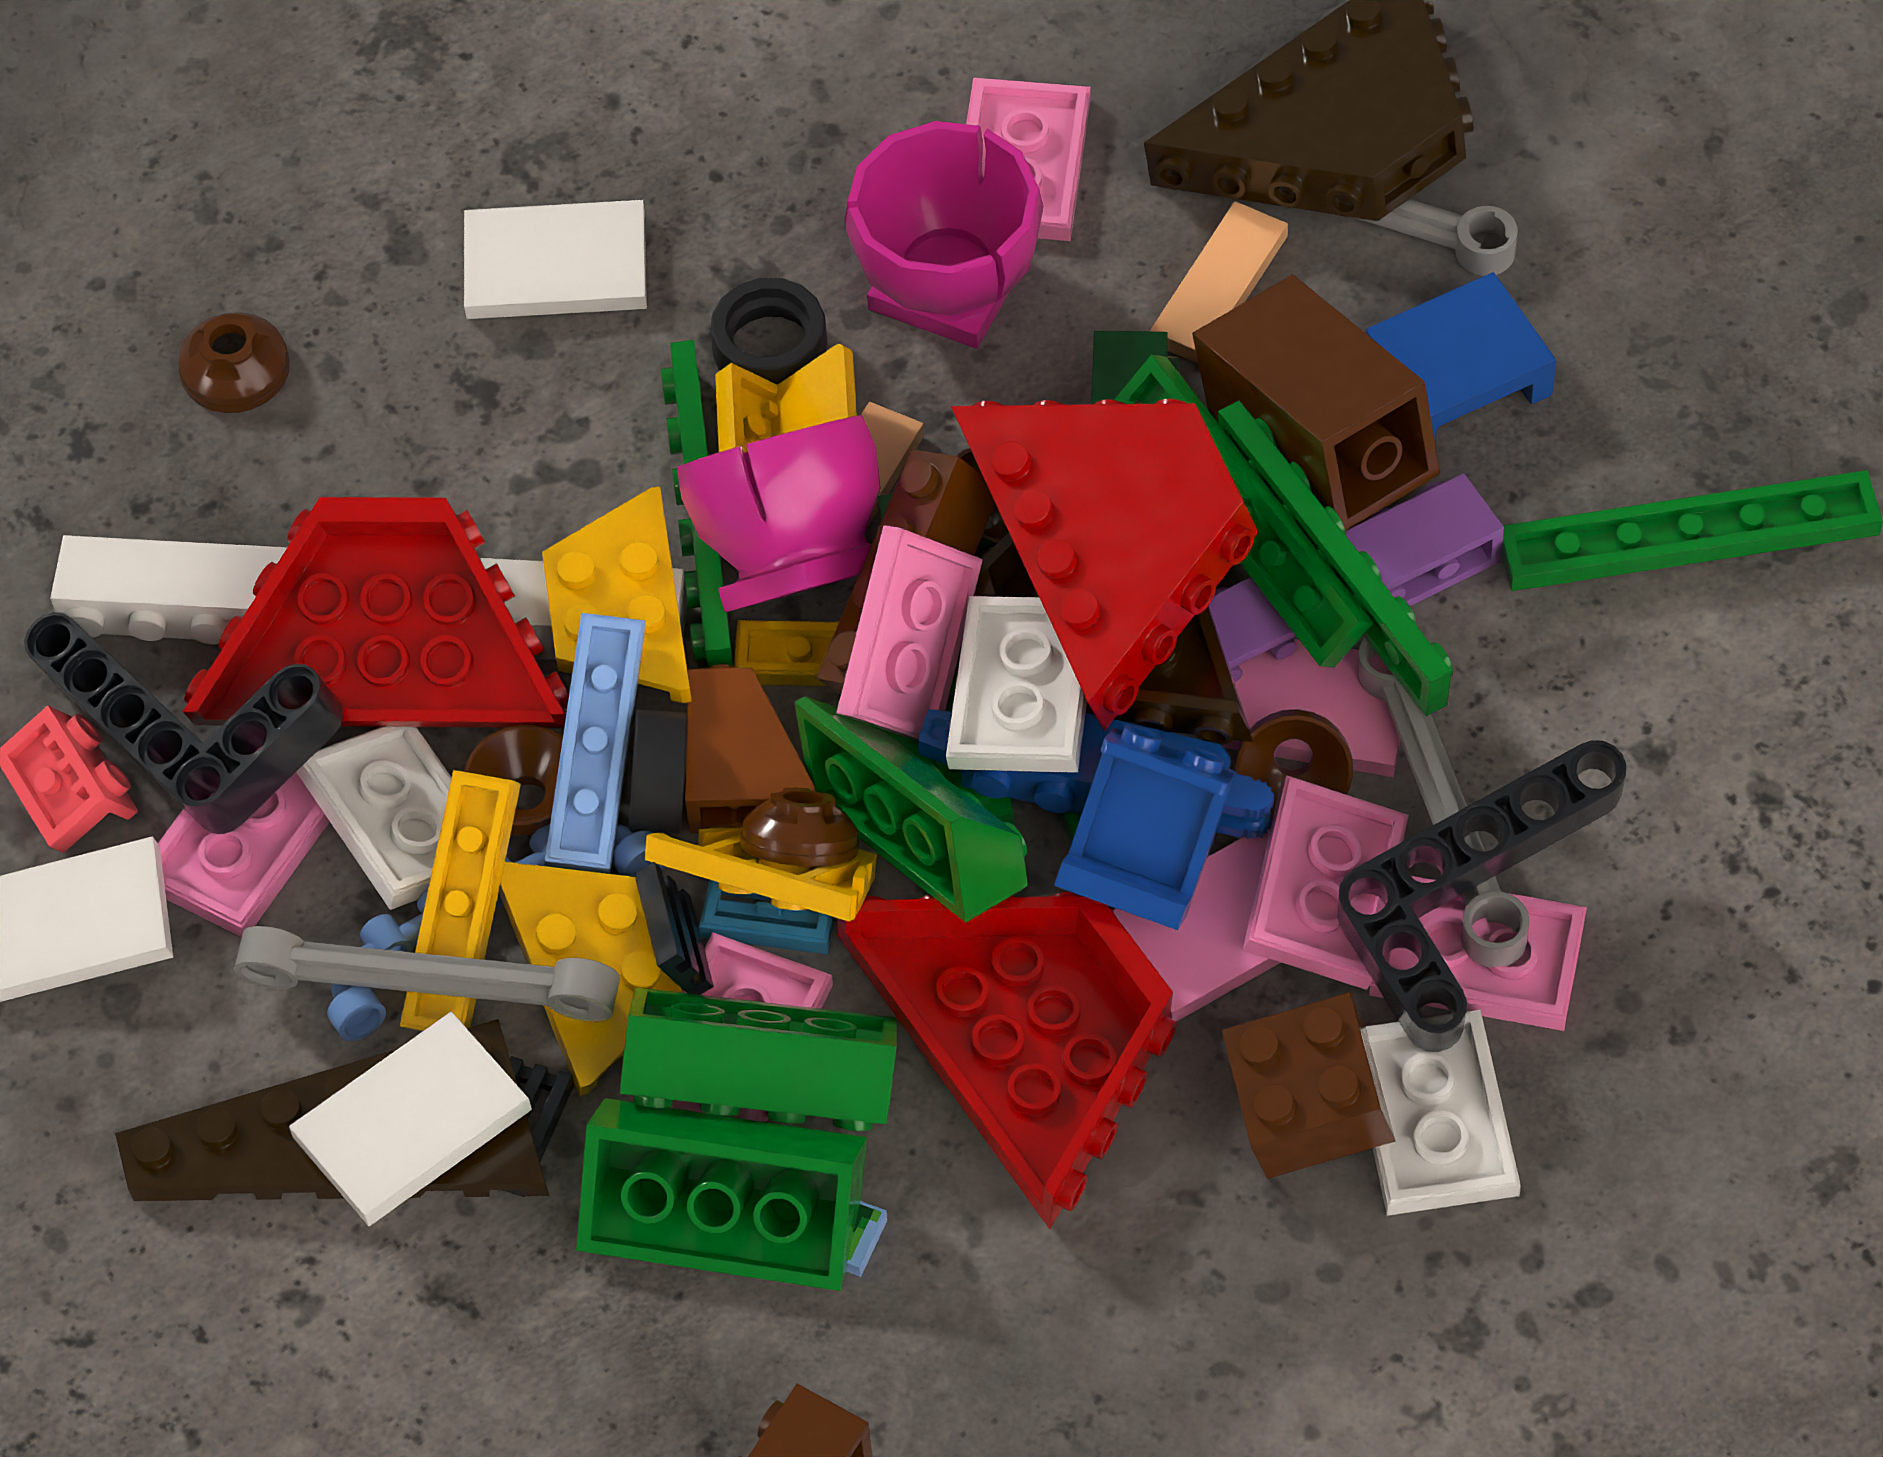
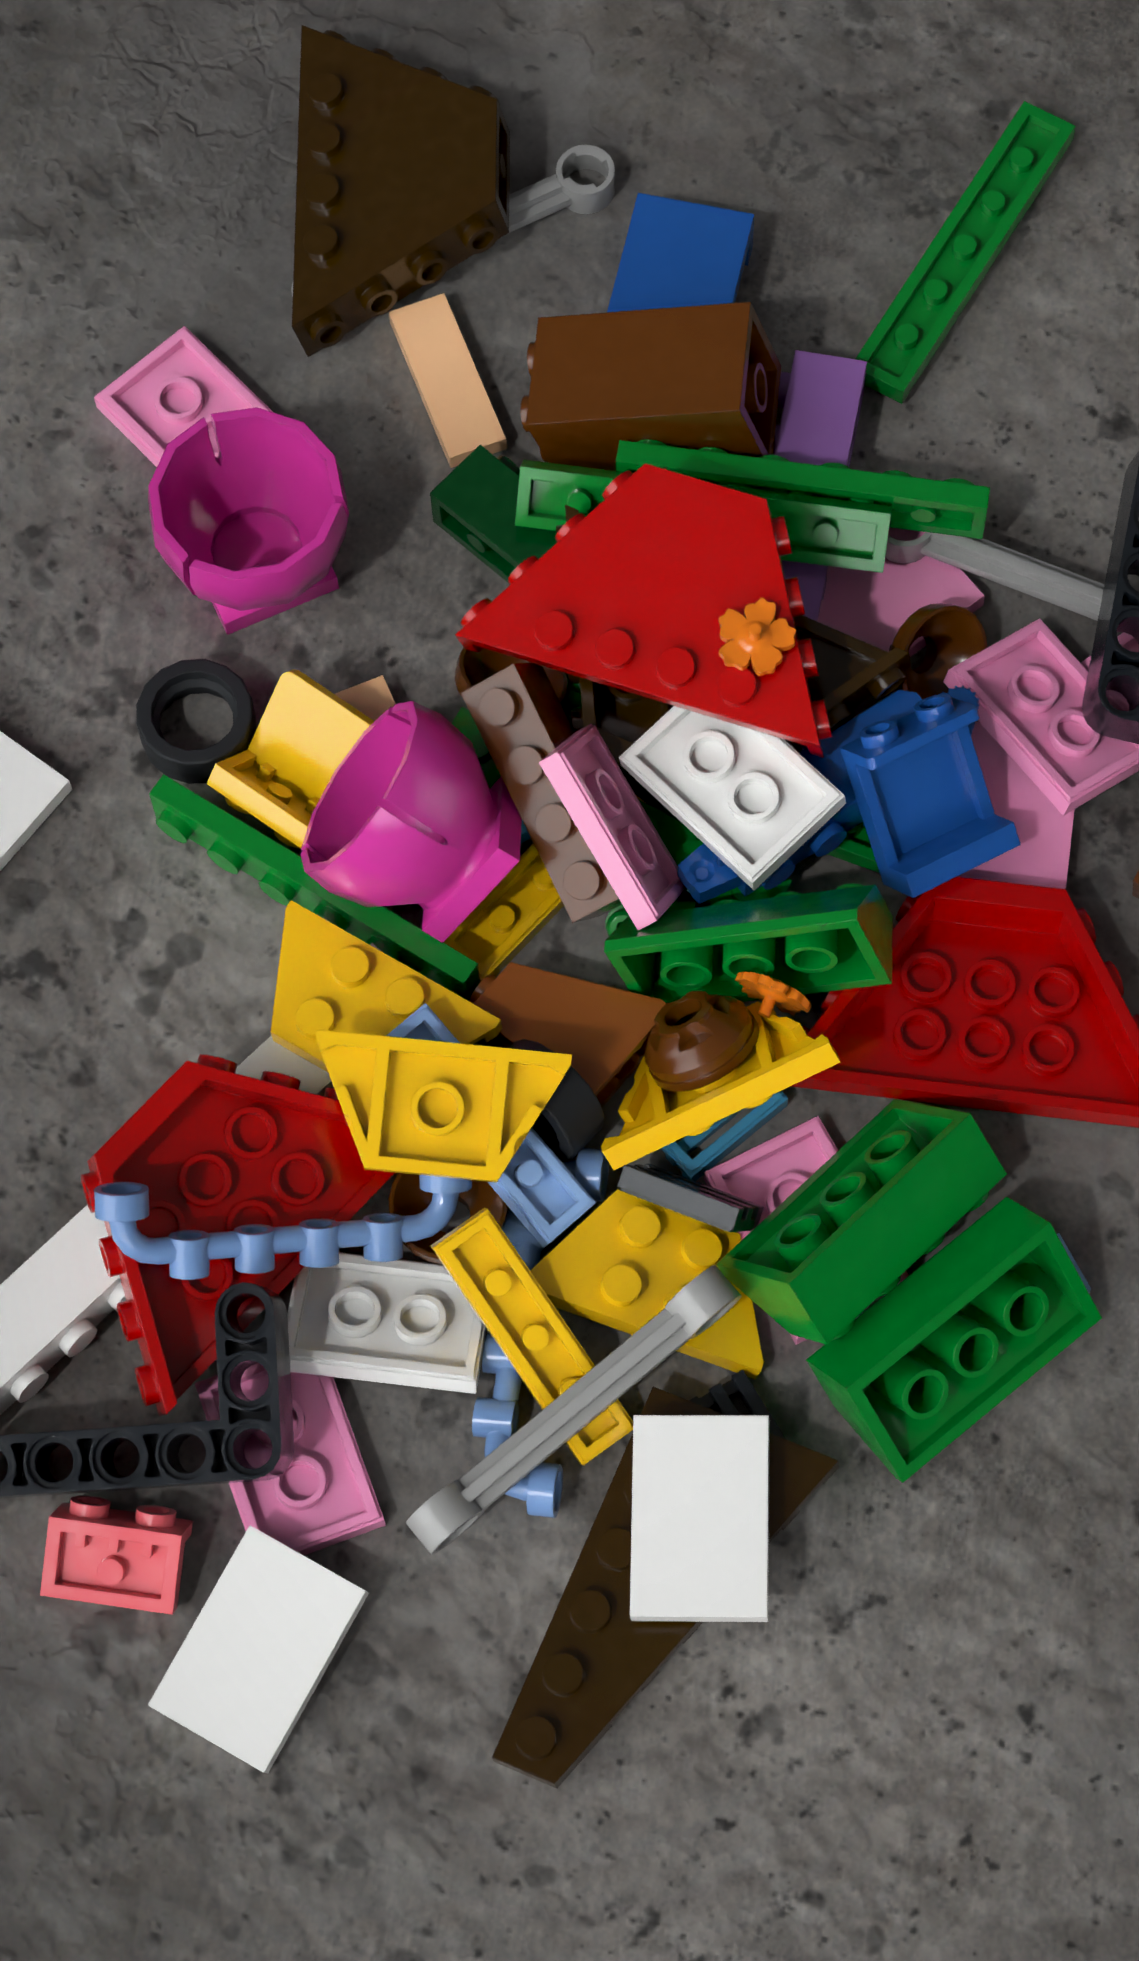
camera: 50 degrees left, 10 degrees up
(362, 665) = (256, 1244): none -> medium blue bar
(567, 684) = (438, 1102): none -> yellow wing
(880, 849) = (772, 993): none -> orange plant
(1124, 585) = (755, 637): none -> orange plant

